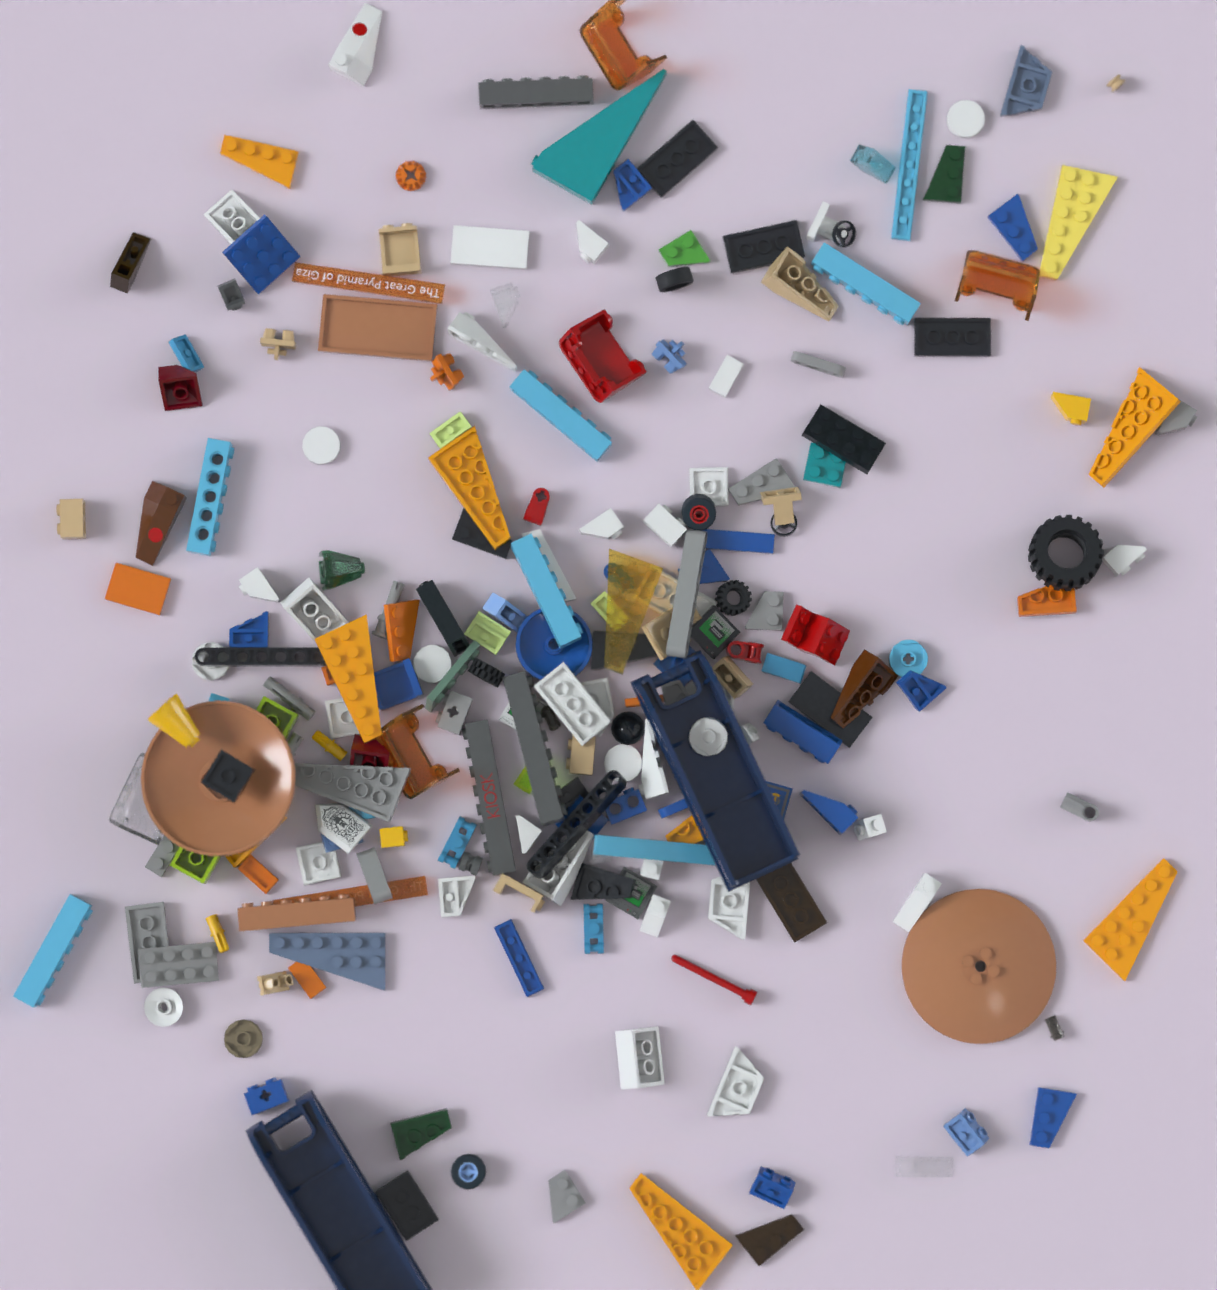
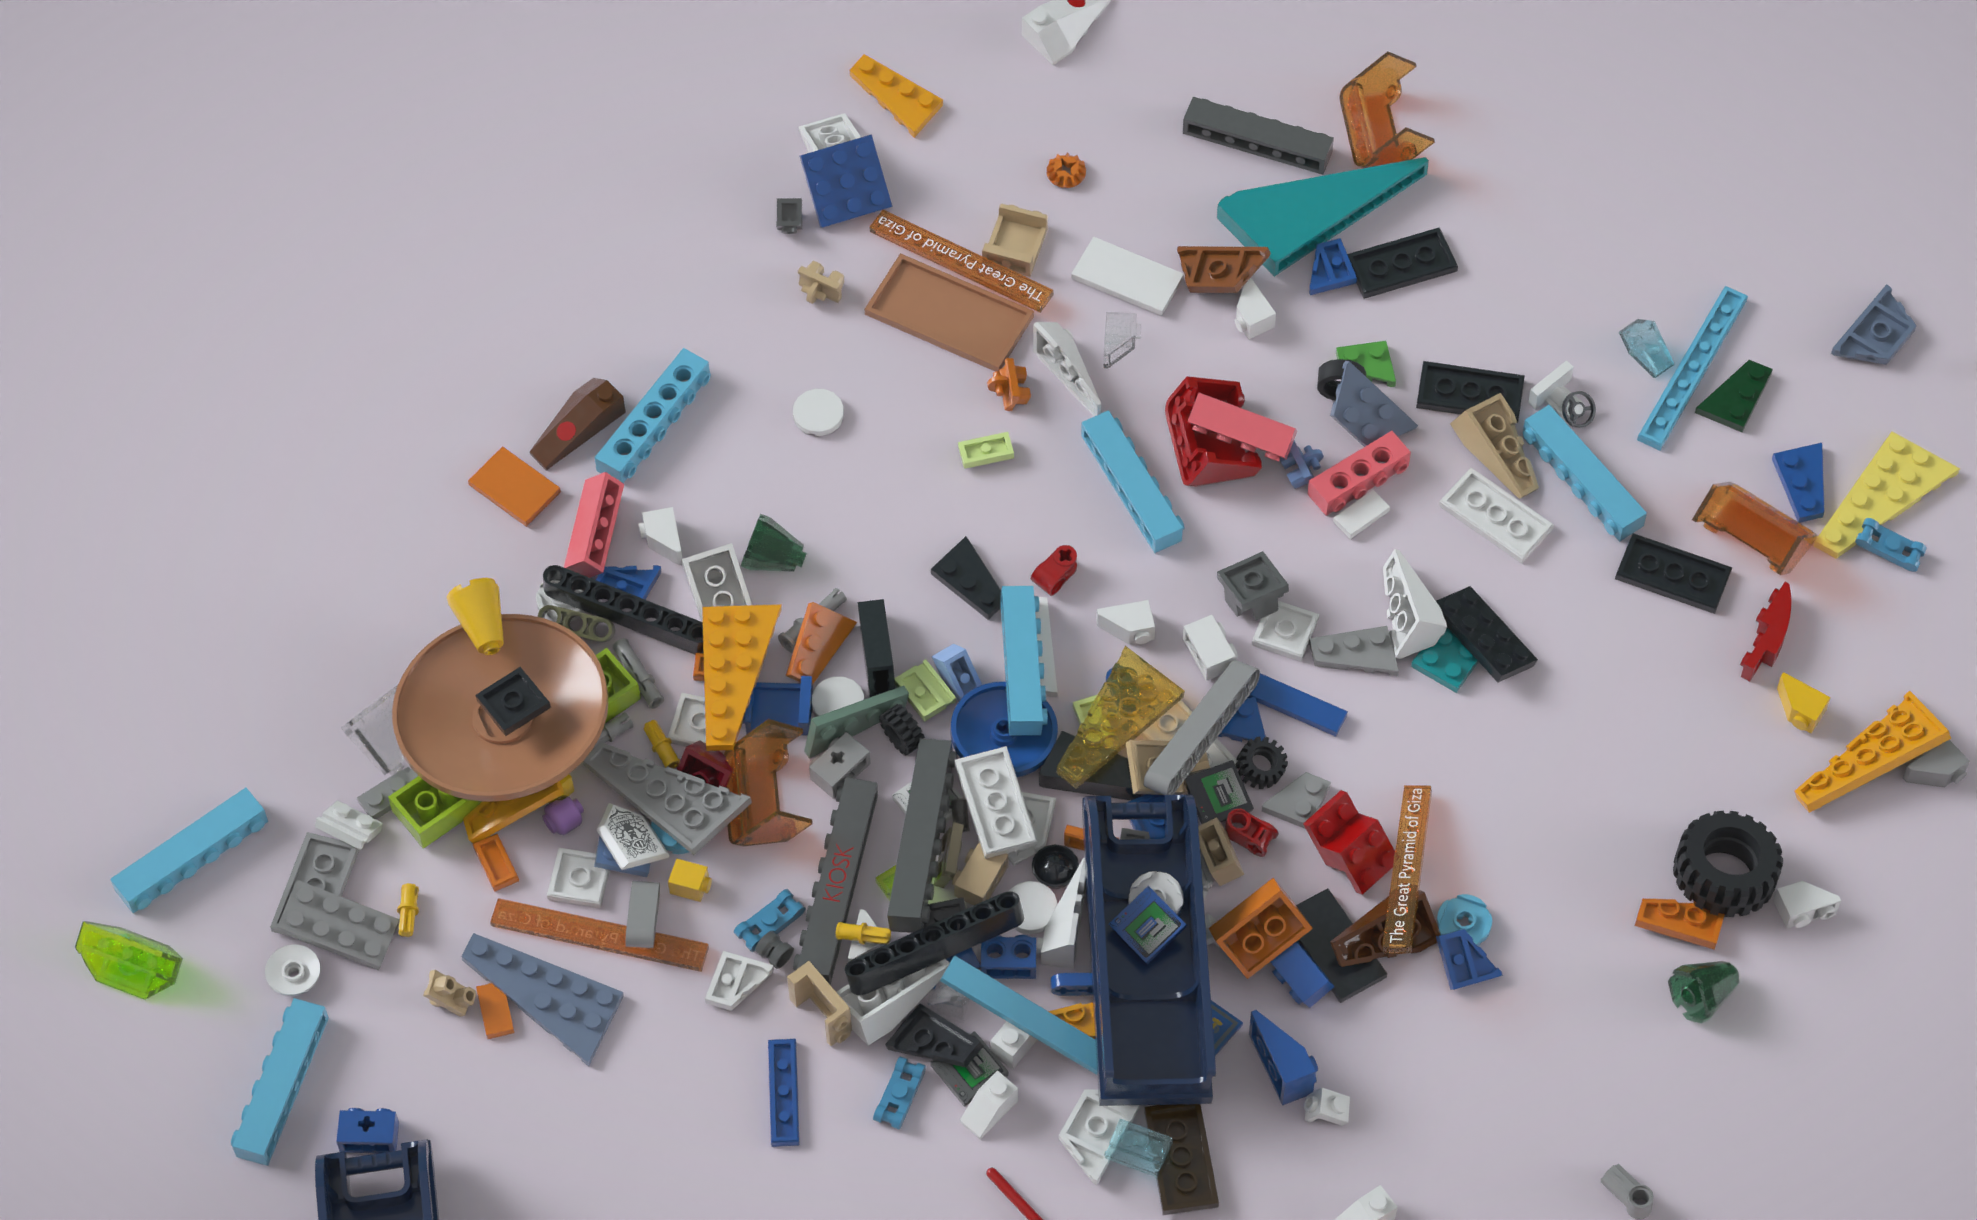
camera: 25 degrees right, 25 degrees down
(53, 1044) = (127, 959): none -> clear neon green wedge
(72, 519) = (475, 380): tan brick -> none
(129, 263) = (681, 143): dark brown slope -> none
(149, 889) = (348, 825): none -> white plate
(179, 388) = (676, 289): dark red slope -> none
(186, 354) = (703, 257): dark azure plate -> none
(193, 1086) = (280, 1081): none -> medium azure brick
(209, 601) = (594, 525): none -> coral brick
(239, 674) = (589, 622): none -> olive beam
(243, 1038) = (375, 1052): dark tan tile -> none
(290, 826) = (563, 815): none -> medium lavender head
(296, 914) = (520, 920): nougat brick -> none
(469, 479) = (983, 508): light orange wing -> none
(526, 835) = (863, 933): none -> yellow axle
(553, 220) = (1220, 268): none -> dark orange wing
(555, 744) = (949, 855): none -> dark tan plate
(623, 350) = (1242, 426): none -> coral brick
(676, 467) = (1253, 585): none -> dark grey panel
(697, 505) = (1264, 654): black wheel -> none
(702, 298) = (1365, 409): none -> sand blue wing
(711, 758) = (1148, 925): none -> tile
(725, 319) = (1365, 461): none -> coral brick
(763, 908) = (1138, 1147): none -> clear light blue plate
(782, 508) = (1369, 685): tan piece -> none
(782, 727) = (1260, 928): none -> orange slope
(783, 668) = (1294, 871): dark azure slope -> none
(792, 444) = (1413, 611): none -> white wedge
(817, 338) = (1496, 515): none -> white tile
(818, 364) = (1485, 540): light grey beam -> none
(860, 643) = (1407, 869): none -> clear orange tile
(965, 119) = (1785, 342): white tile -> none
(1034, 353) = (1771, 632): none -> red slope
(1080, 646) = (1702, 988): none -> clear green cone
(1091, 258) = (1890, 545): none -> dark azure plate

